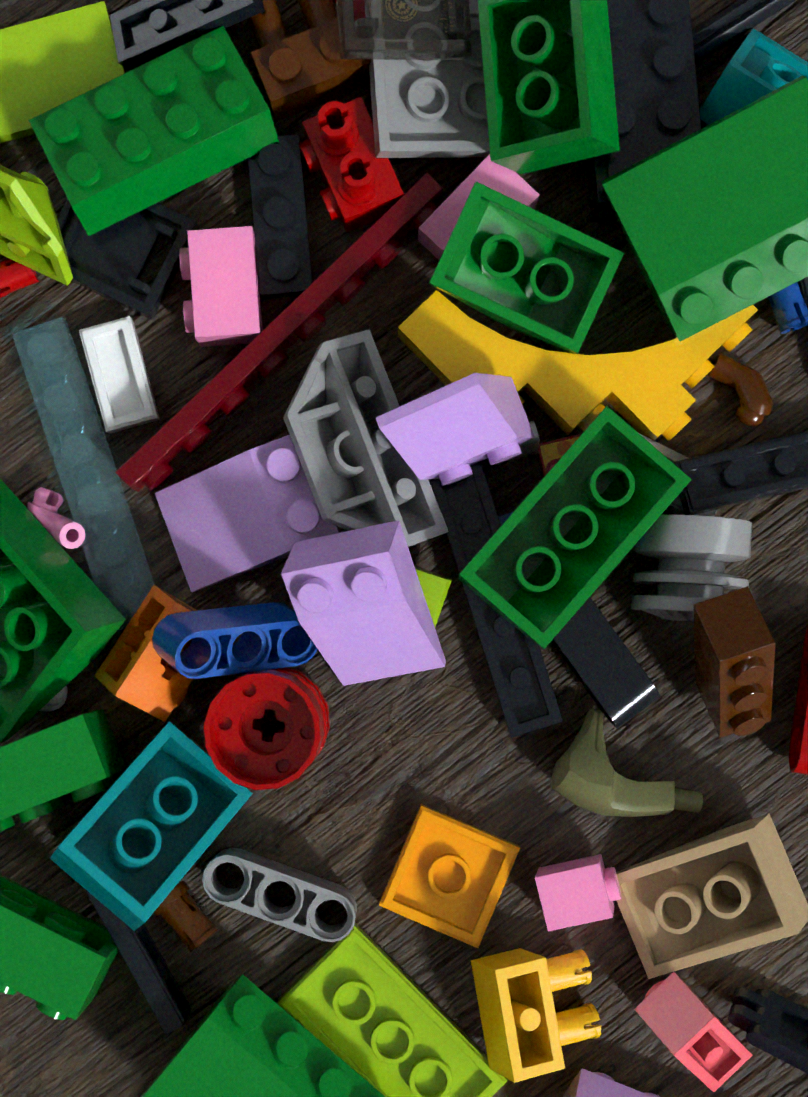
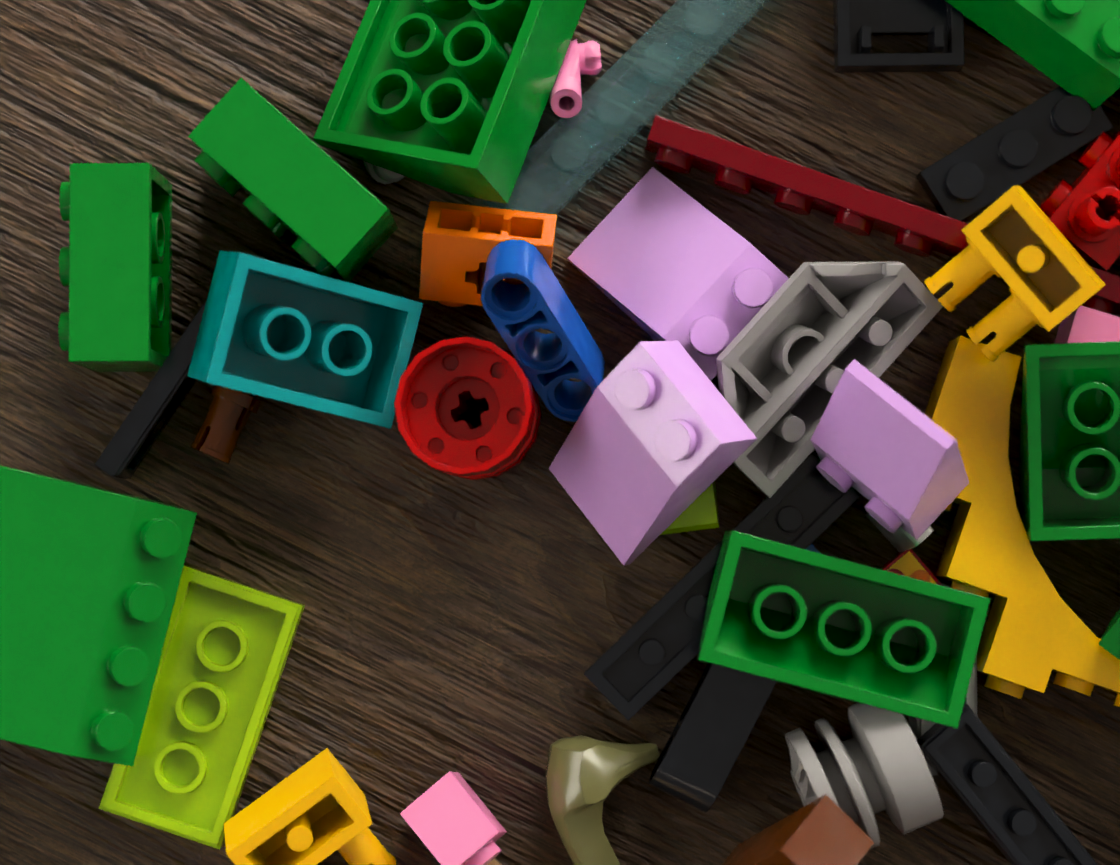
camera: 60 degrees right, 0 degrees up
(119, 374) = (759, 66): white tile -> none
(223, 286) = (910, 129): bright pink brick -> none
(253, 896) = (280, 484): light grey beam -> none
(367, 244) = (1031, 256): none -> yellow brick
(449, 876) = (403, 681): light orange tile -> none
(749, 386) = (1086, 745): reddish brown arm -> none

